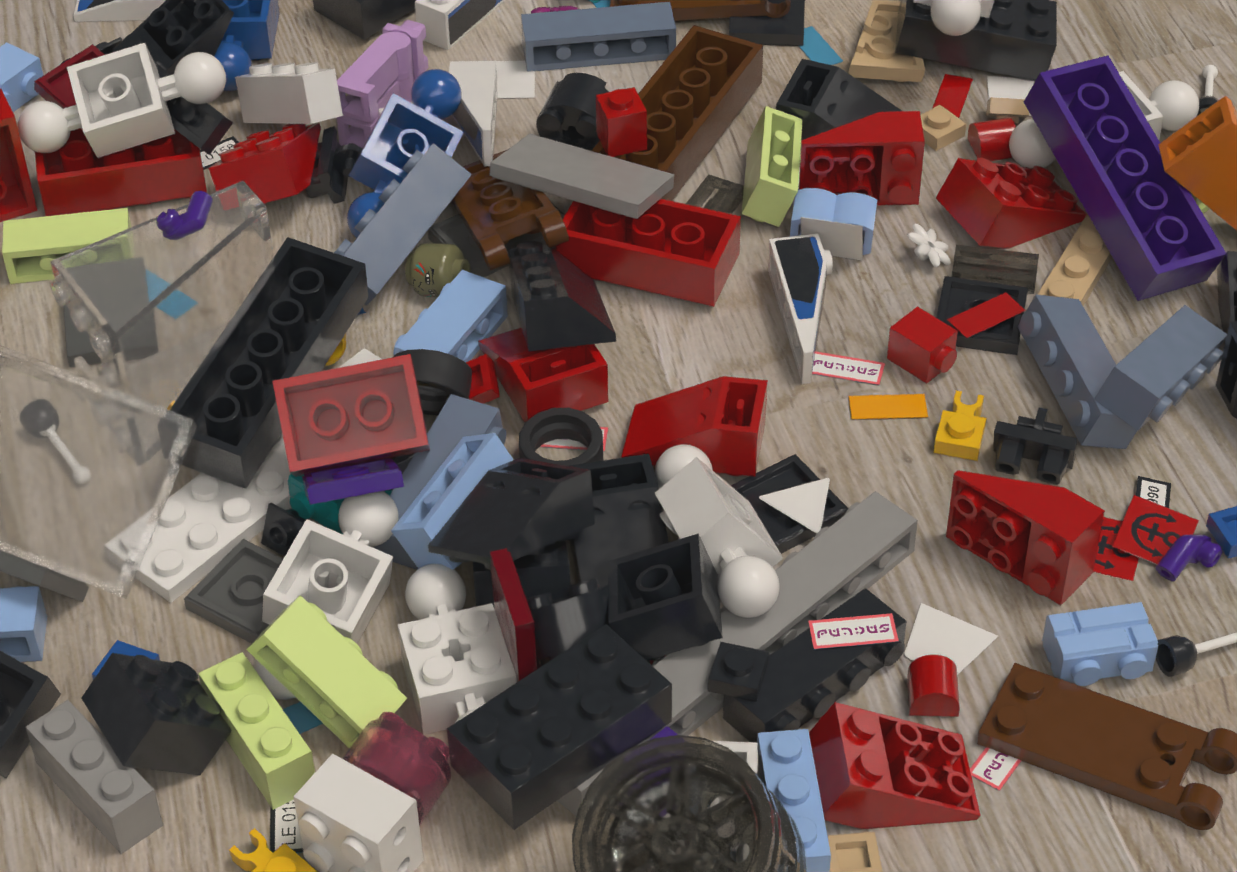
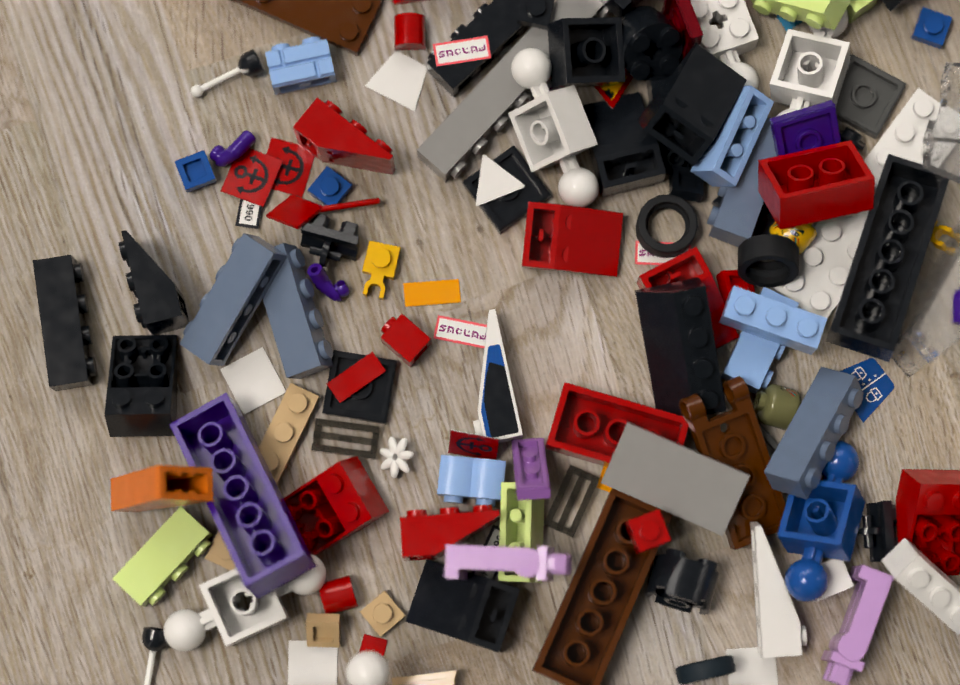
camera: 175 degrees right, 35 degrees up
(435, 308) = (773, 320): none -> light blue brick
(565, 39) = (705, 669): none -> black bush
(760, 196) = (530, 469): none -> medium lavender tile
(792, 91) = (526, 562): none -> lavender hips
(1027, 403) = (324, 284): none -> dark purple arm
(1085, 471) = (298, 211): none -> red piece
(1121, 328) = (253, 380): none -> white sticker

